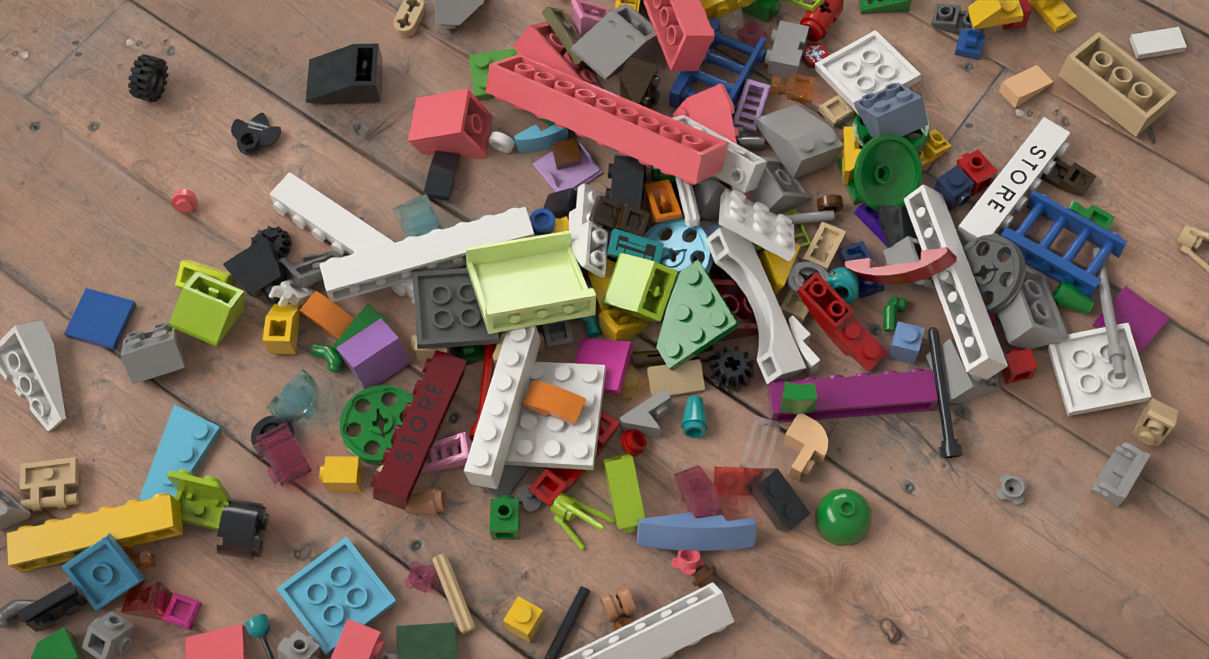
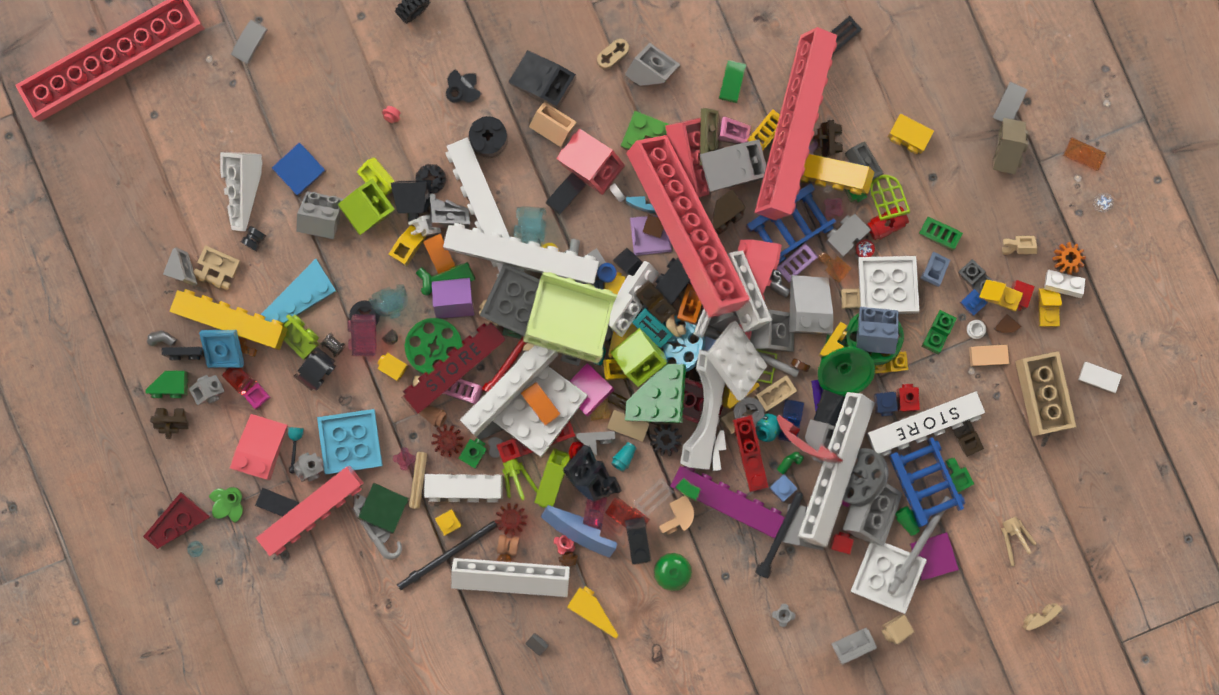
camera: 30 degrees right, 20 degrees up
(80, 423) = (254, 234): none -> black wheel
(250, 490) = (333, 345): none -> clear smoke bush
(315, 161) = (478, 132): none -> black brick
(318, 441) = (391, 337): none -> clear smoke hinge
(382, 111) = (552, 124): none -> light nougat piece
(453, 518) = (449, 447): none -> clear red gear
(519, 563) = (463, 486): none -> white wedge
(596, 561) = (510, 525): none -> clear red gear
(665, 237) = (676, 330): none -> tan arm
(668, 455) = (590, 475): none -> black slope
(772, 621) = (589, 608): none -> yellow slope
(907, 34) = (935, 269): none -> sand blue slope
(955, 91) = (939, 332): none -> green slope
(993, 67) = (976, 329): none -> white plate
(1022, 46) = (1007, 325): none -> reddish brown tile

